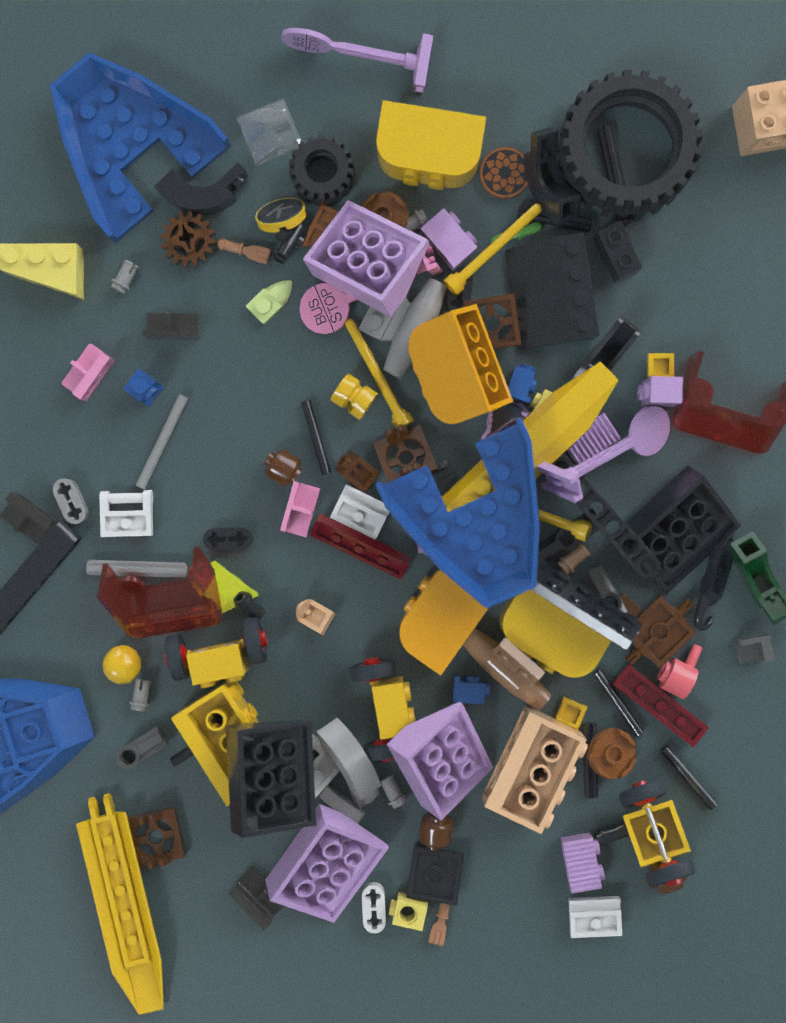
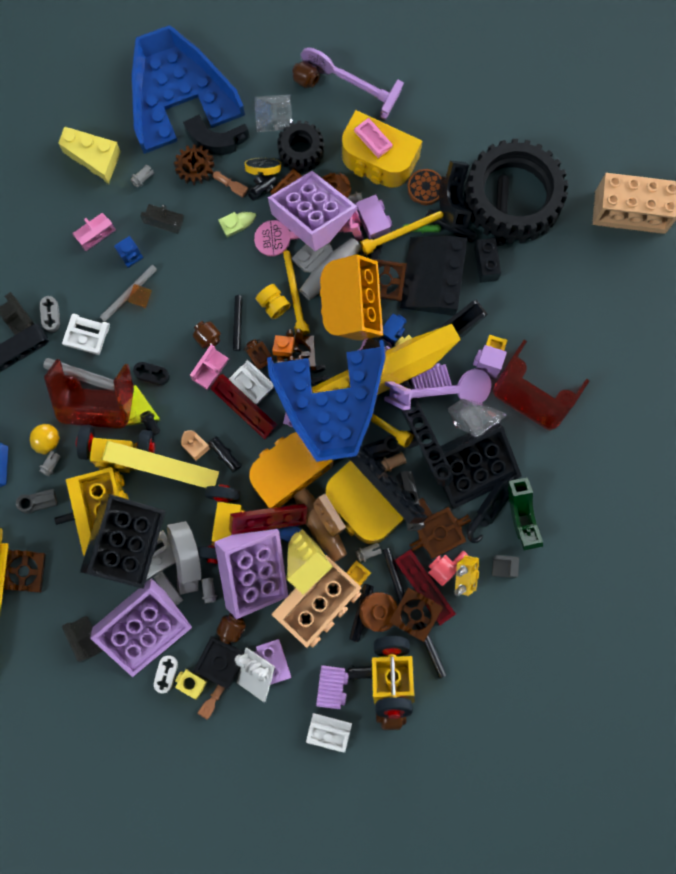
camera: 15 degrees right, 10 degrees down
(177, 441) = (139, 296): none -> clear orange tile
(282, 661) = (159, 465): none -> light yellow tile
(296, 63) = (305, 74): none -> reddish brown head
(356, 614) = (224, 454): none -> black pin
(387, 453) = (283, 346): none -> orange plate
(420, 135) = (373, 138): none -> bright pink plate
(442, 689) = (267, 519): none -> dark red plate
(484, 878) = (254, 674): none -> white hinge
(501, 855) = (274, 654): none -> lavender brick
(508, 730) = (305, 562): none -> light yellow wedge
(575, 684) = (366, 553): none -> light grey pin
(663, 470) = (474, 416): none -> clear slope
(675, 765) = (434, 608): none -> reddish brown piece
(710, 679) = (467, 575): none -> yellow piece

